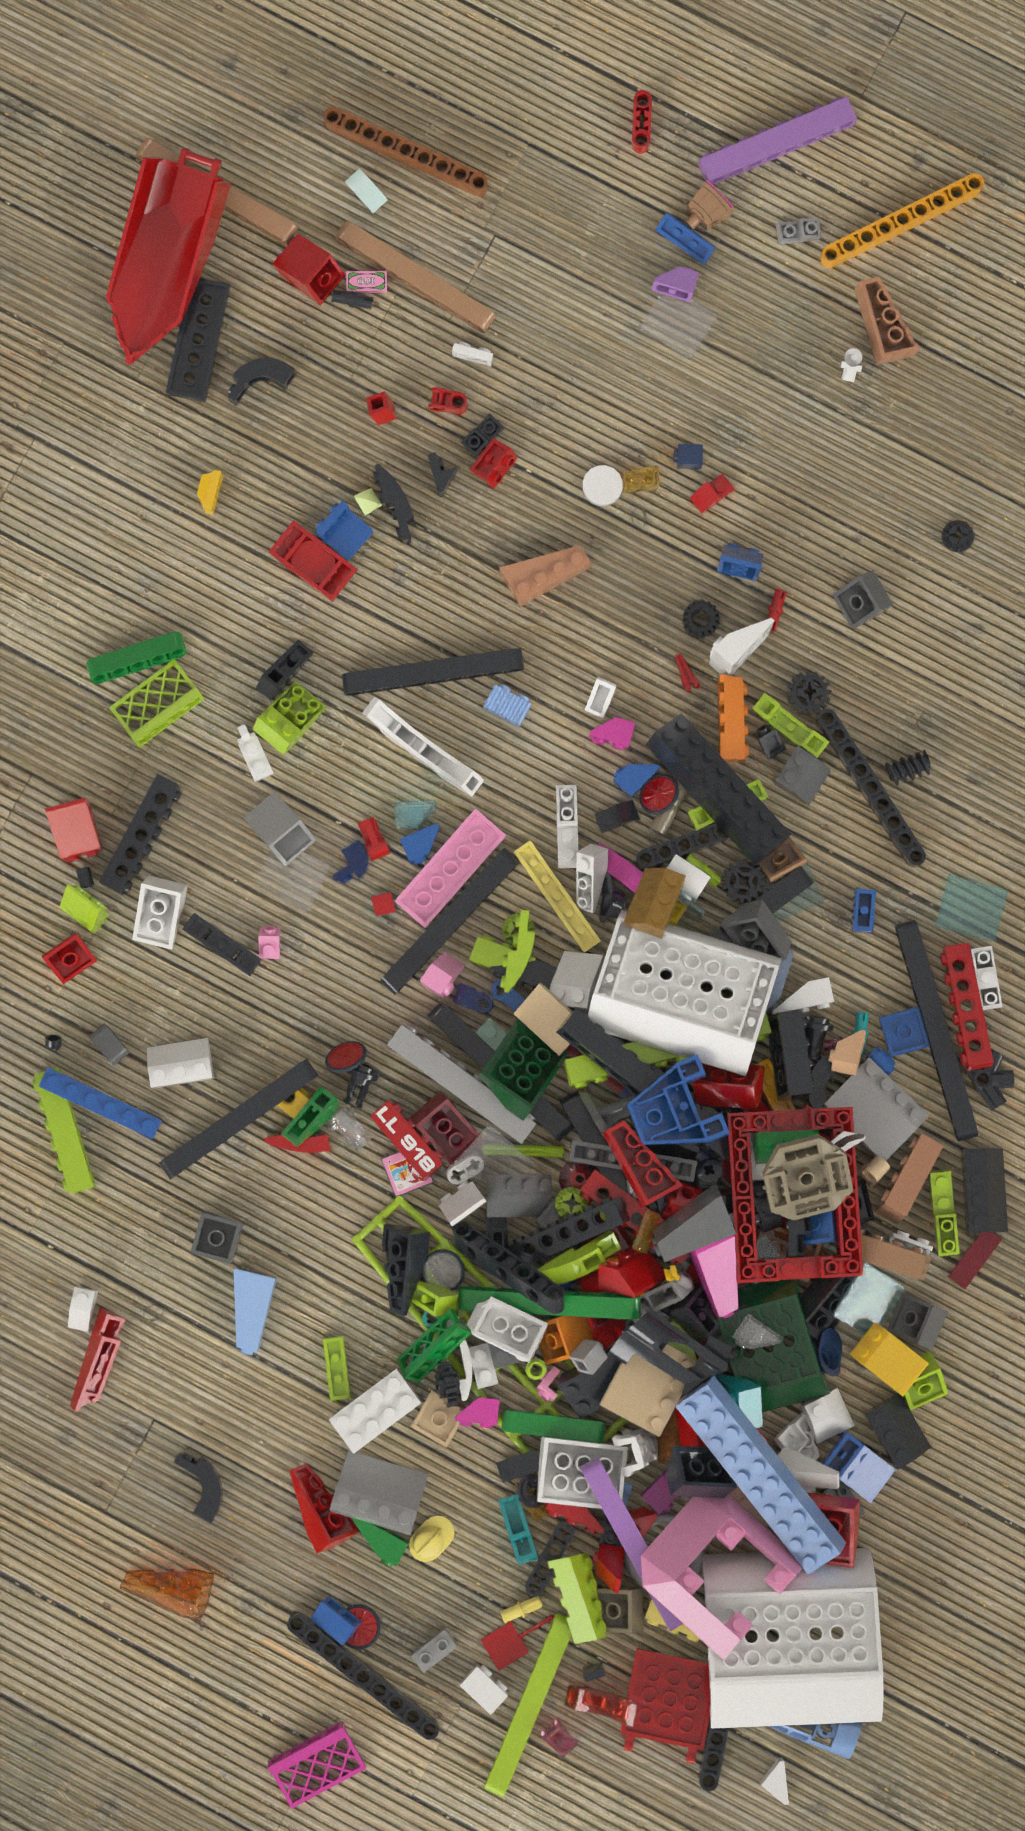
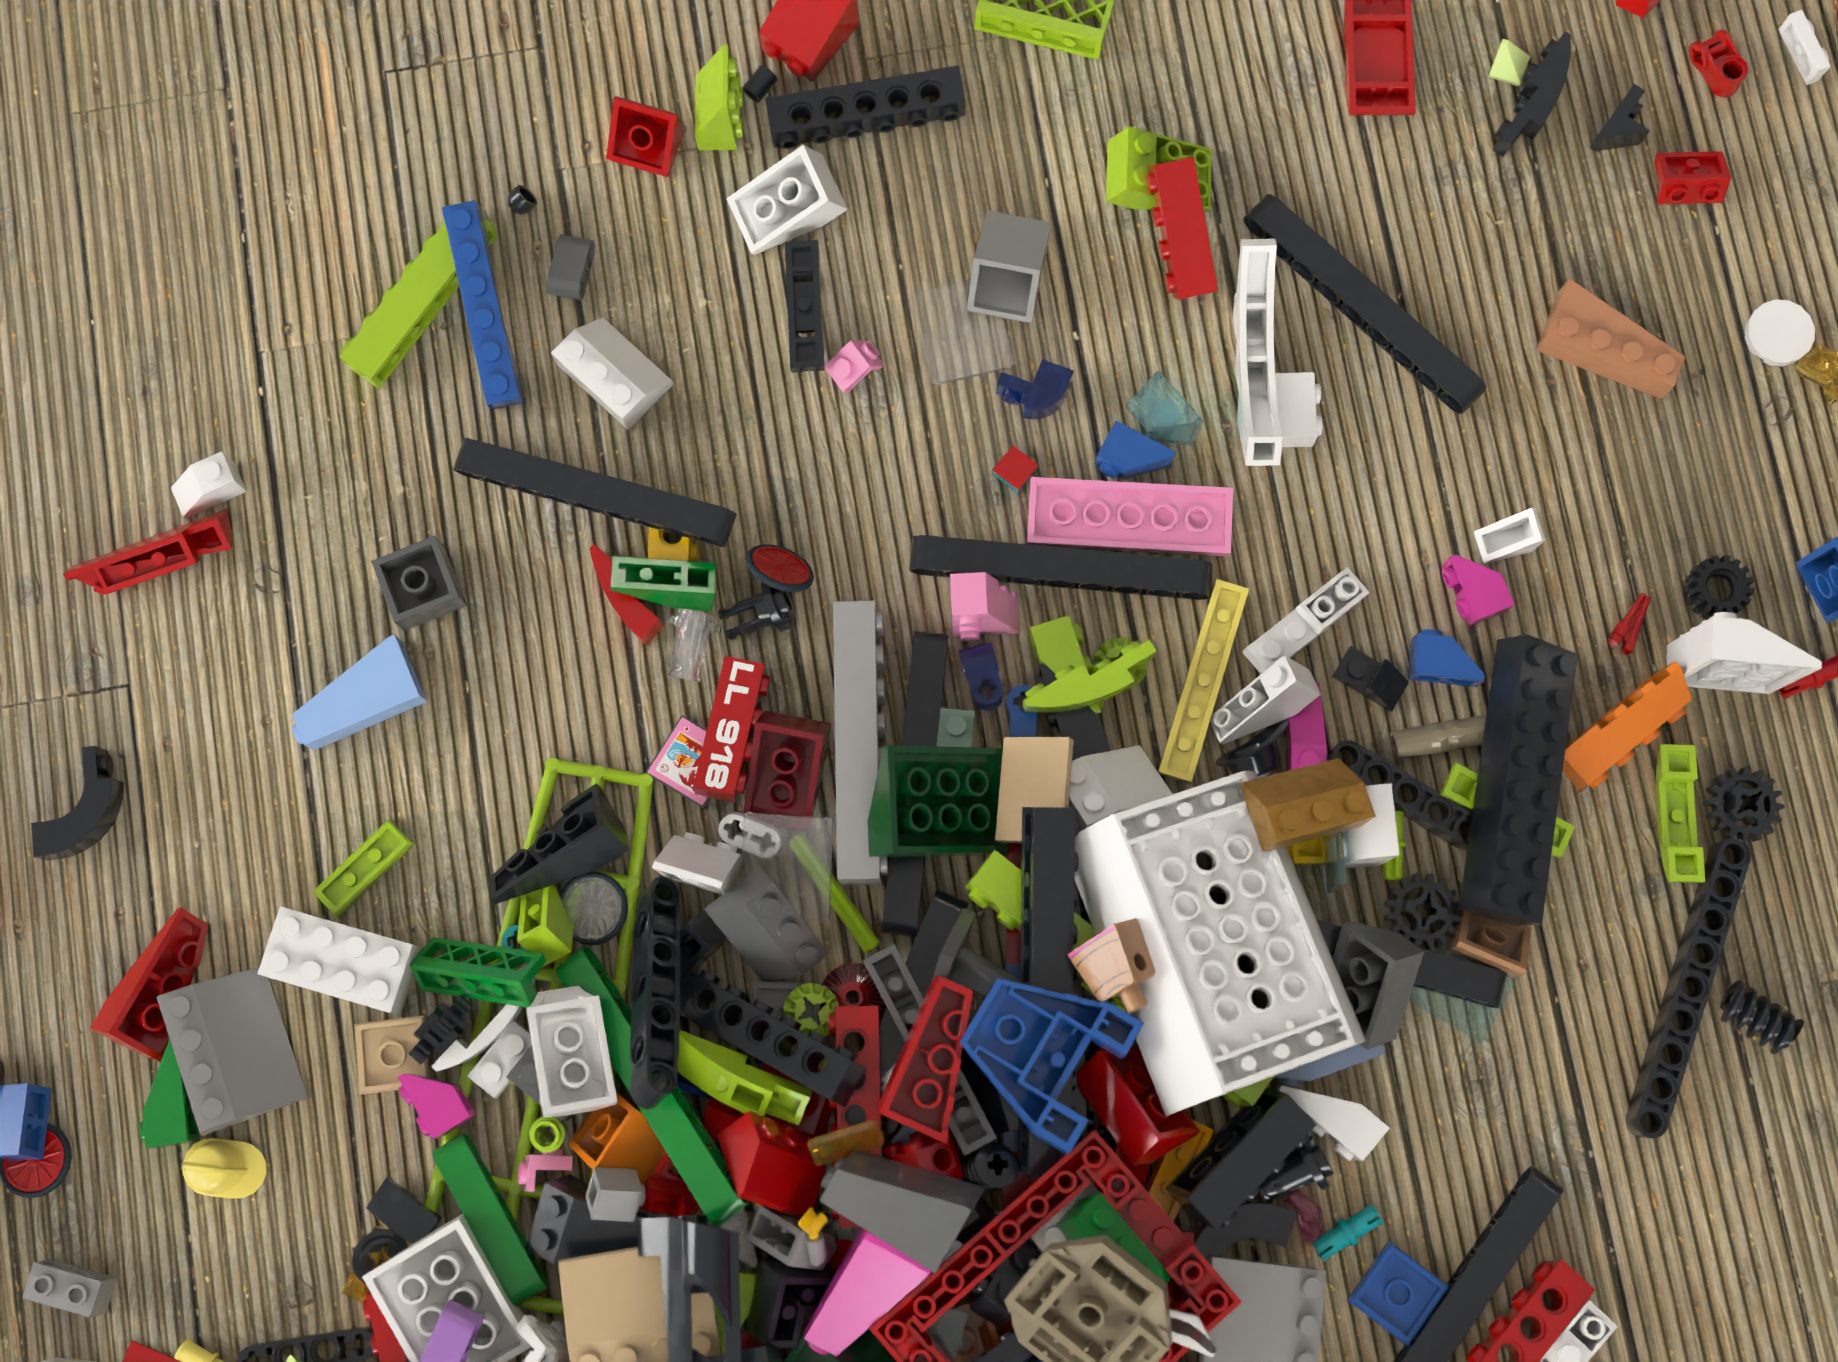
camera: 55 degrees right, 5 degrees down
(254, 754) = (1077, 167): white hinge -> none
(283, 670) = (1213, 121): black slope -> none
(329, 731) = (1182, 228): none -> red brick
(343, 531) = (1448, 59): blue bracket -> none
(374, 841) = (1086, 397): red piece -> none
(460, 747) = (1297, 408): none -> white brick
(481, 436) = (1706, 135): black slope -> none
(507, 705) = (1399, 427): light blue brick -> none
(518, 1529) = (315, 1279): teal slope -> none
(659, 794) = (1446, 709): red wheel -> none
(662, 1046) = (1116, 964): none -> torso
(769, 741) = (1636, 802): black bracket -> none
(802, 776) = (1627, 881): dark grey slope -> none
(848, 1053) = (1308, 1237): light nougat slope -> none
(863, 911) = (1517, 1106): blue brick -> none
(882, 1059) = (1336, 1292): blue brick -> none
(971, 908) = (1640, 1256): clear light blue piece -> none

